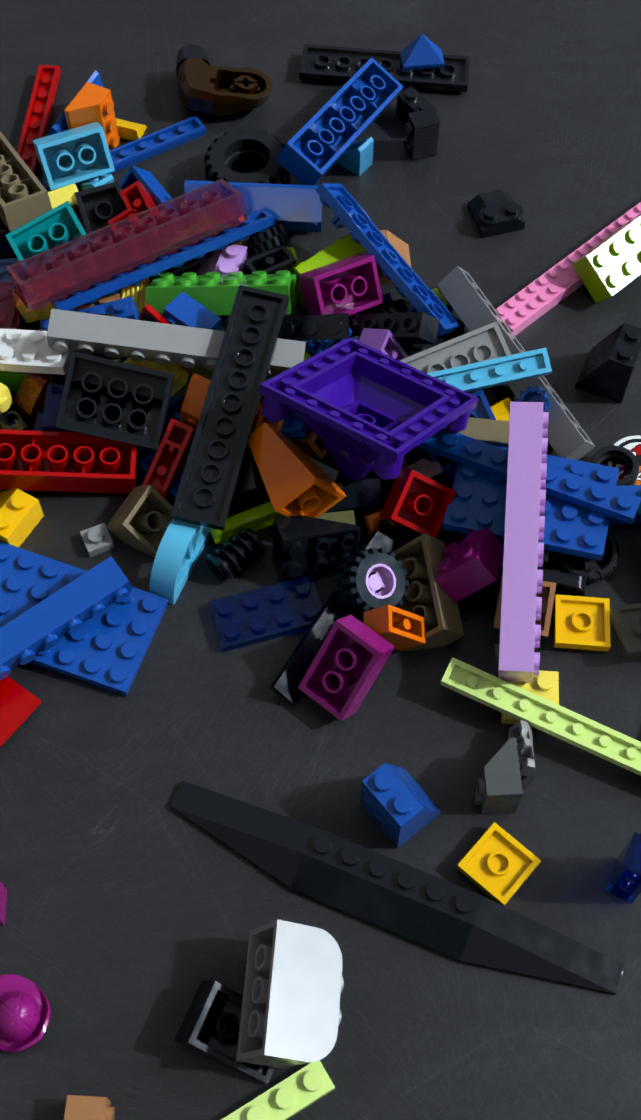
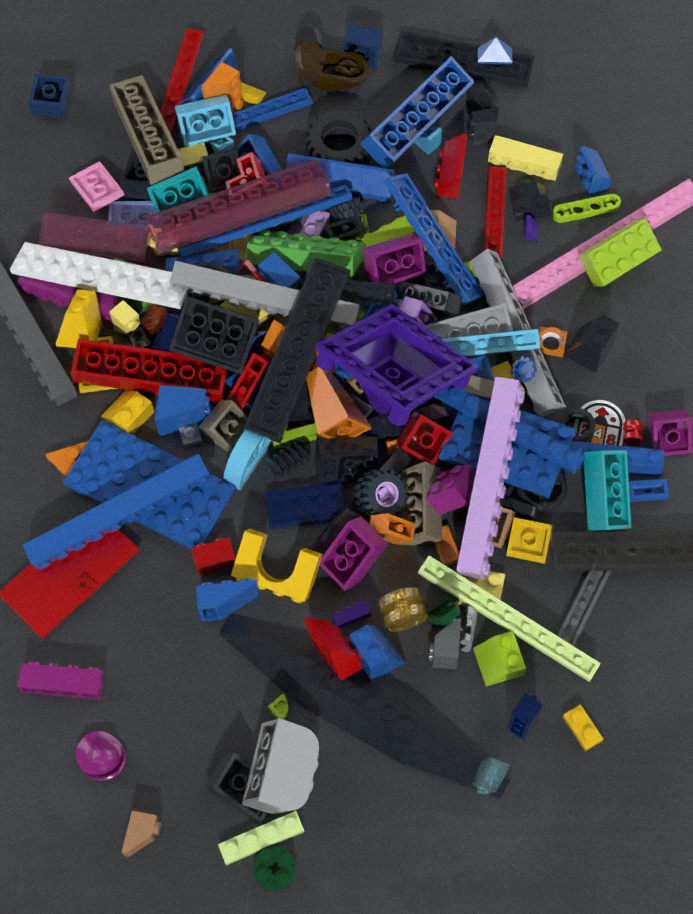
camera: 10 degrees right, 5 degrees up
(79, 503) = (180, 408): none -> blue slope
(149, 697) = (213, 556): none -> red brick
(169, 754) = (222, 599): none -> blue slope
(201, 706) = (249, 565): none -> yellow arch
(263, 54) = (366, 43): none -> dark blue brick
(271, 902) = (280, 707): none -> lime tile
(339, 804) = (333, 647): none -> red slope
(354, 755) = (351, 614): none -> dark purple piece
(392, 182) = (451, 167): none -> red slope
(428, 736) = (402, 609): none -> clear yellow wheel
(454, 225) = (495, 209): none -> red tile
(471, 647) = (447, 548): none -> orange tile
(480, 165) = (525, 158): none -> light yellow brick
(488, 734) = (445, 613): none -> dark green wing
(498, 864) = (437, 702): yellow plate -> none
(503, 244) = (531, 229): none -> dark purple slope
(566, 171) = (592, 171): none -> blue slope
(568, 365) = (553, 332): none -> orange piece
(575, 790) = (499, 659): none -> lime slope
(591, 206) = (585, 206): none -> lime beam
(600, 963) = (490, 775): none -> clear light blue slope

